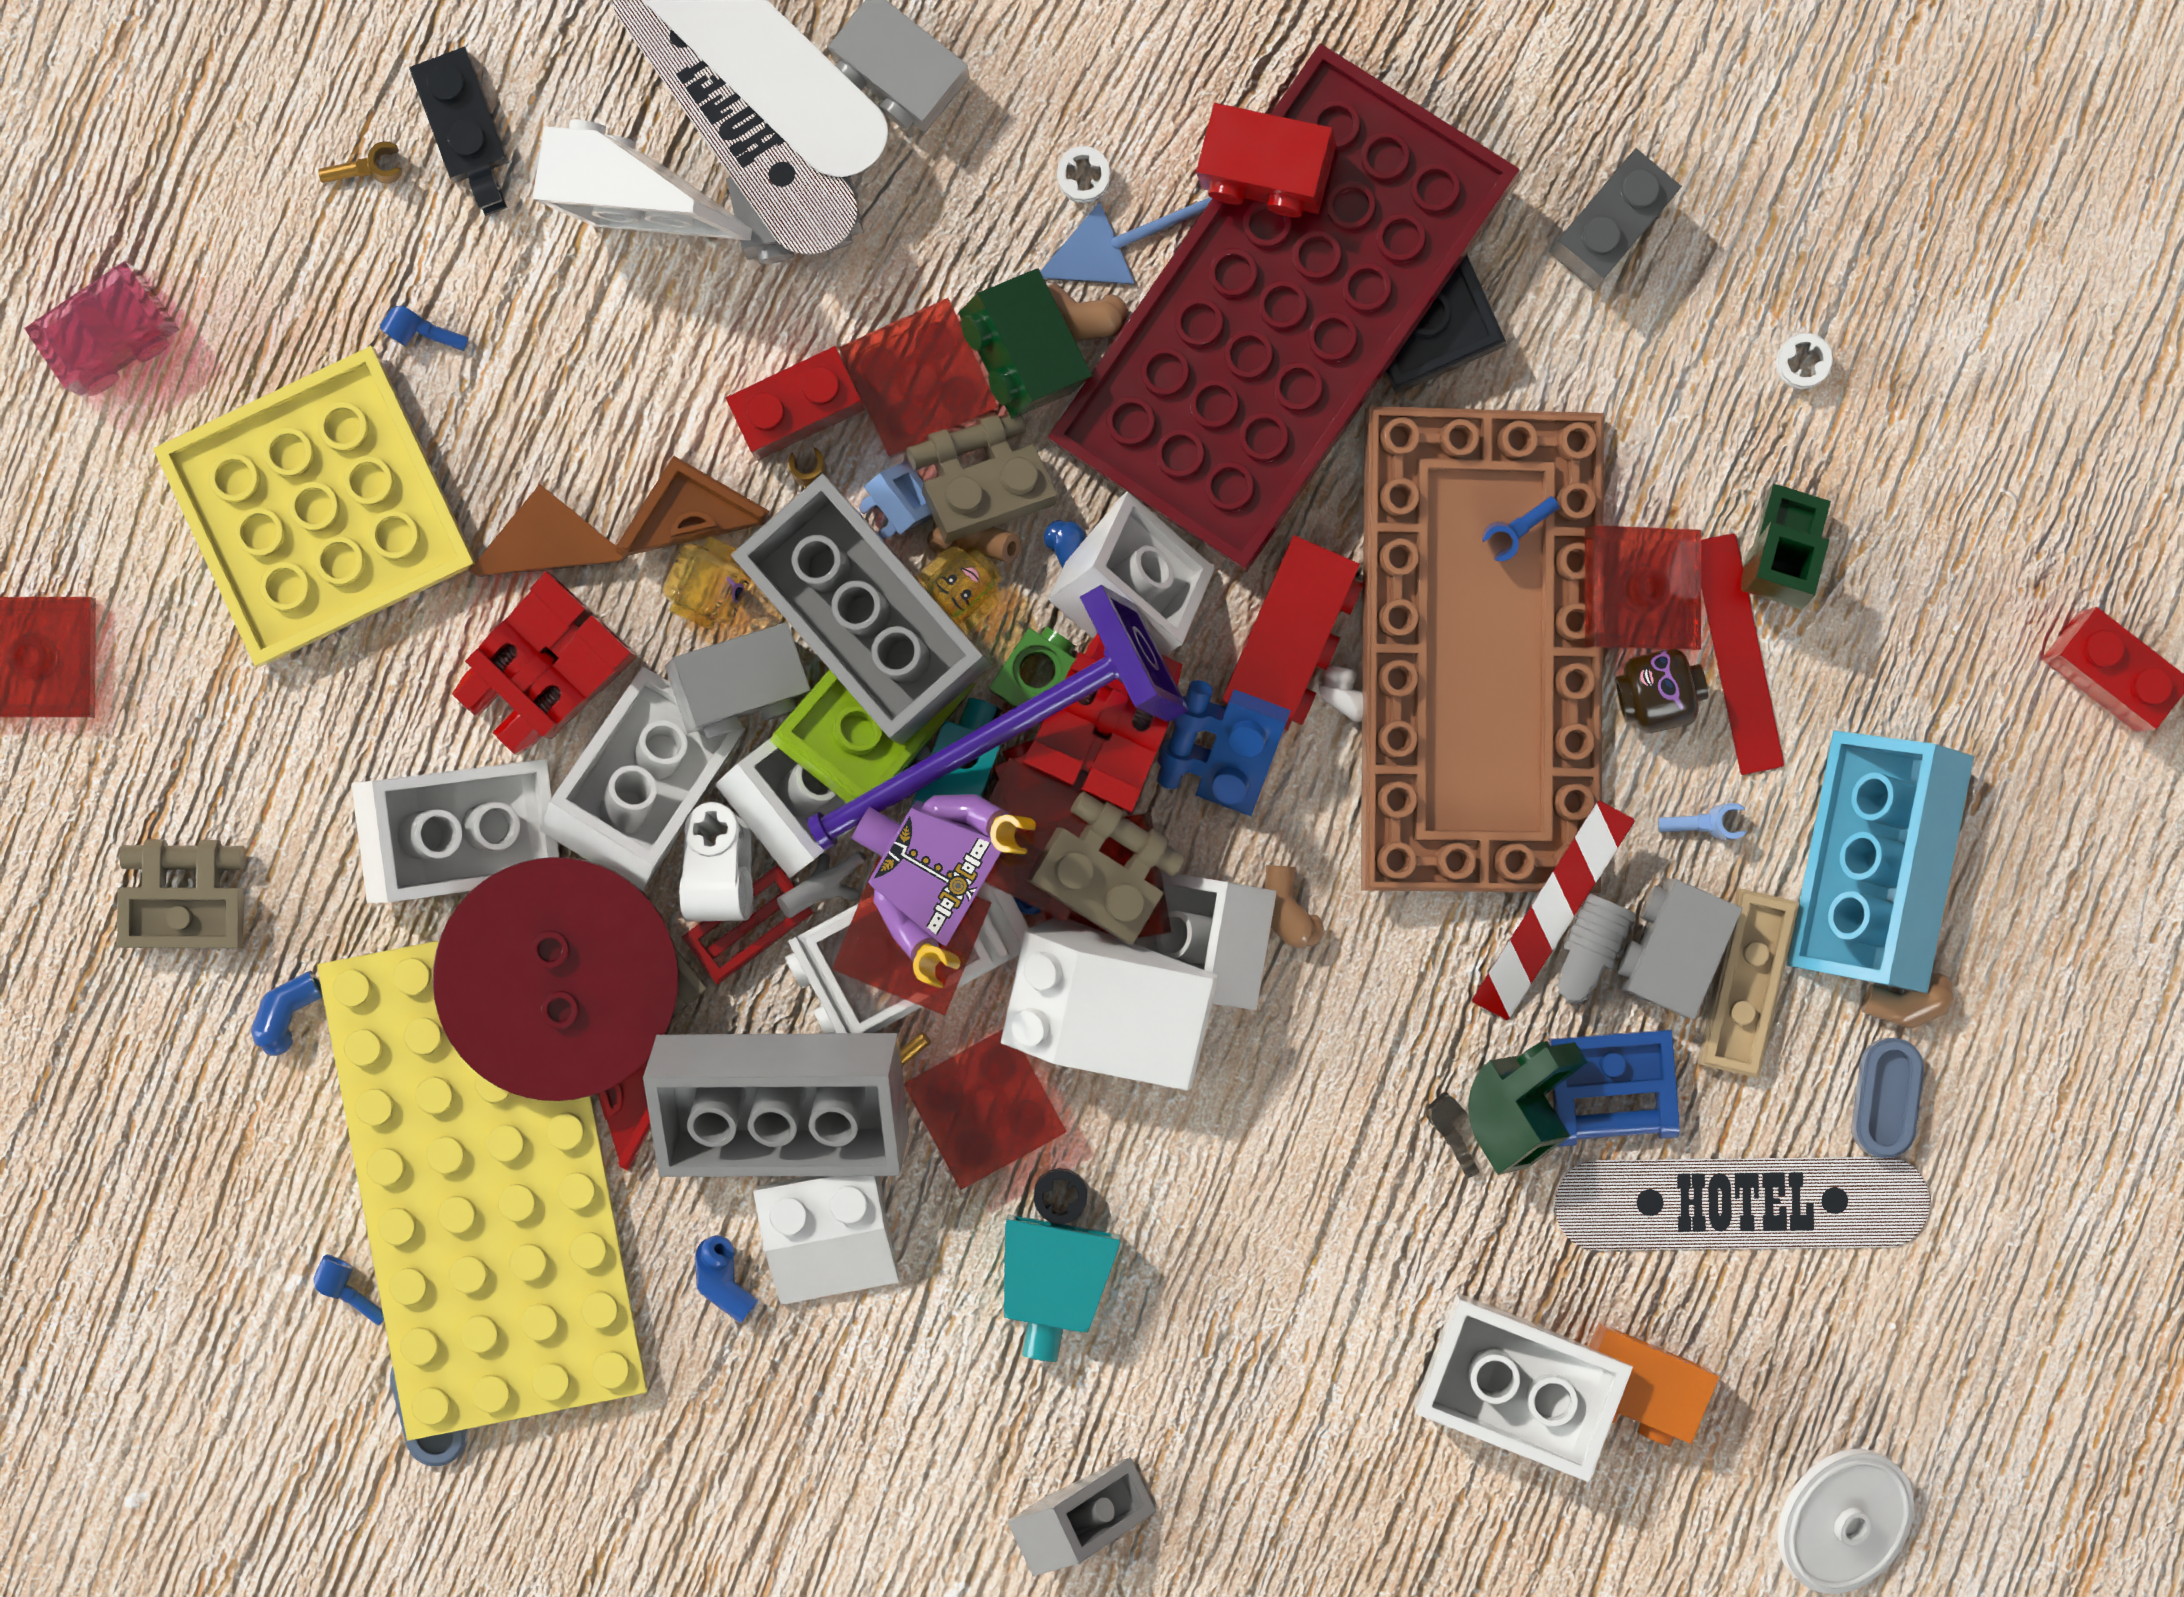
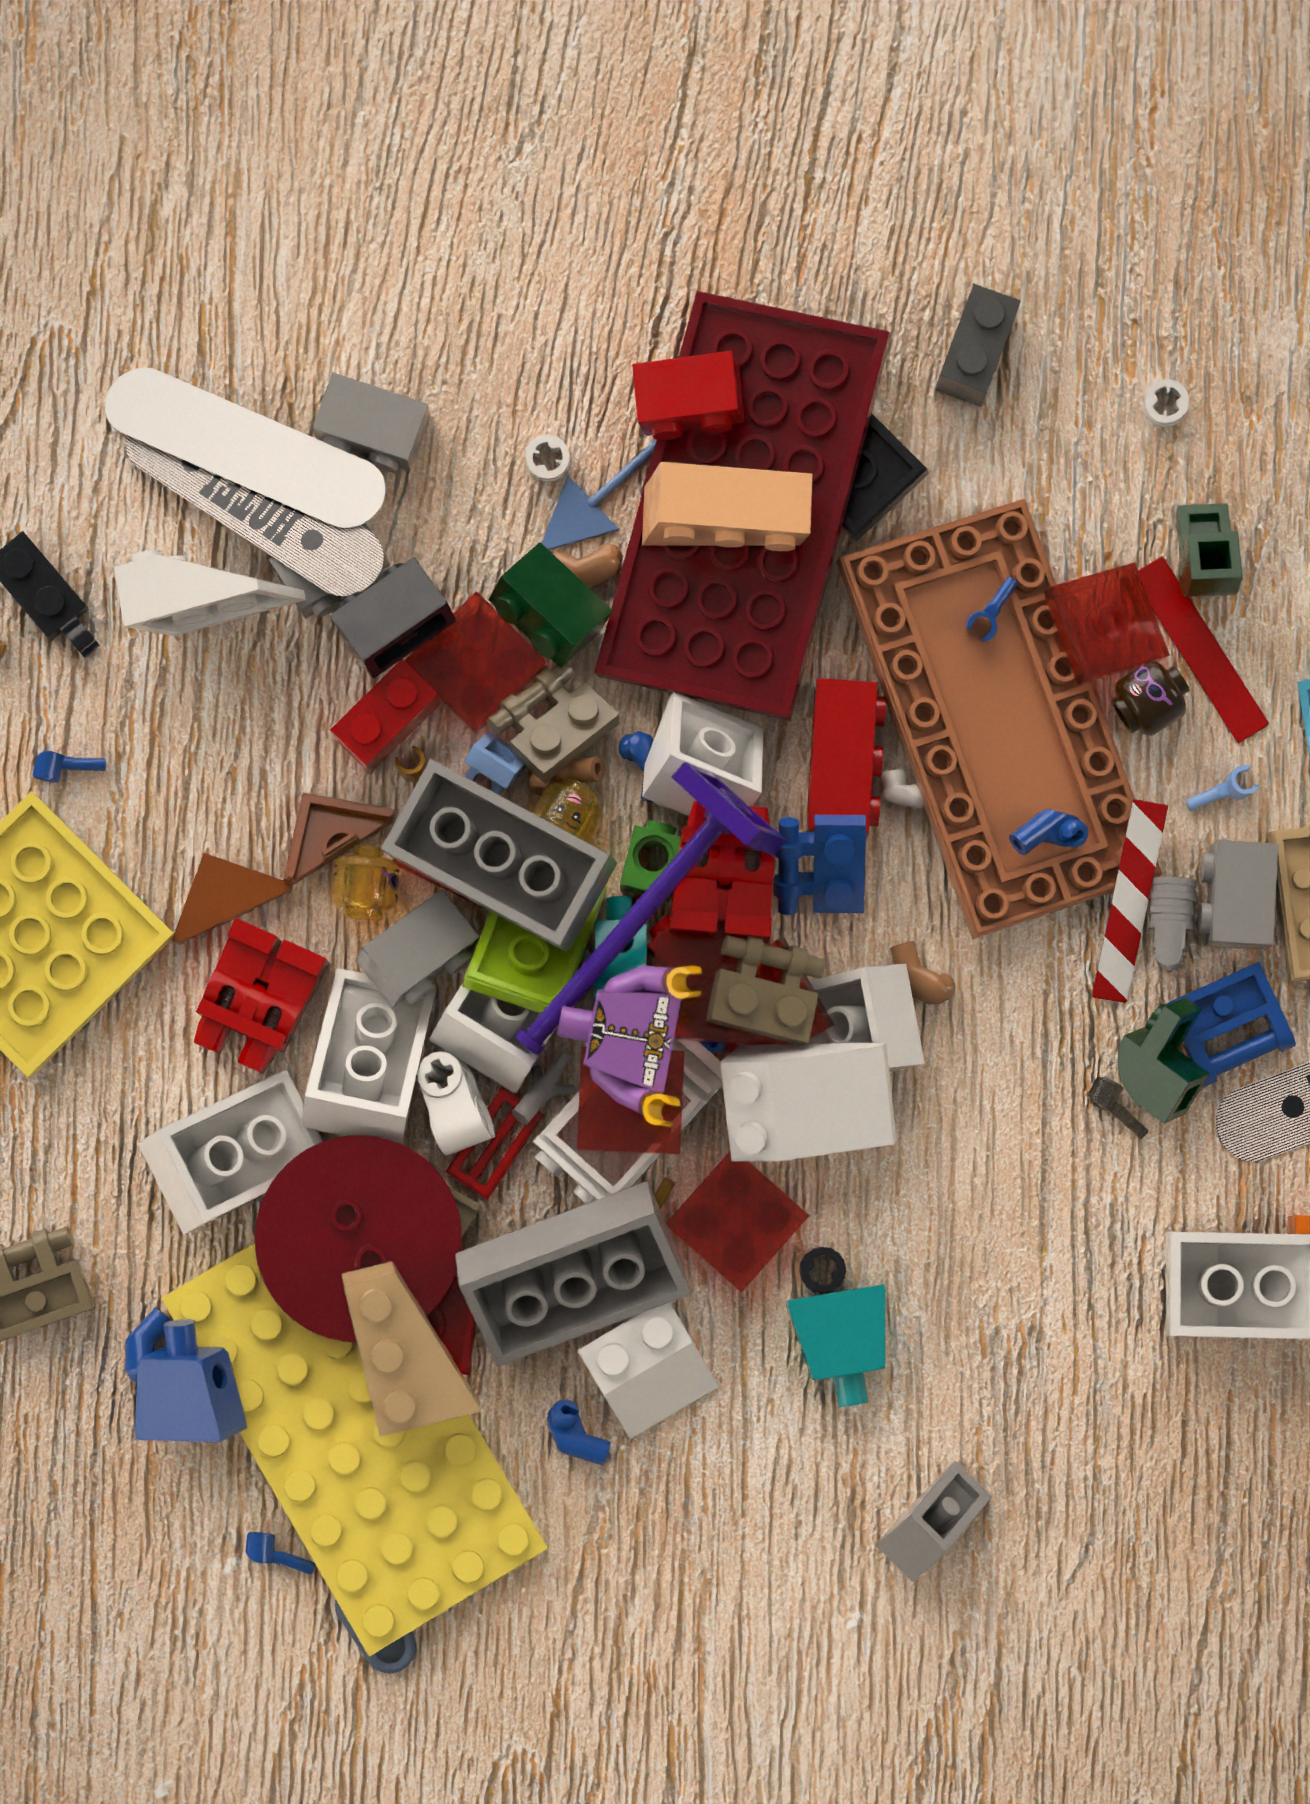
camera: 20 degrees left, 5 degrees down
(307, 1080) = (187, 1391): none -> blue torso
(555, 1127) = (402, 1357): none -> tan wedge
(839, 295) = (392, 617): none -> slope
(1261, 305) = (726, 507): none -> light nougat wedge
(1494, 798) = (1052, 828): none -> blue arm

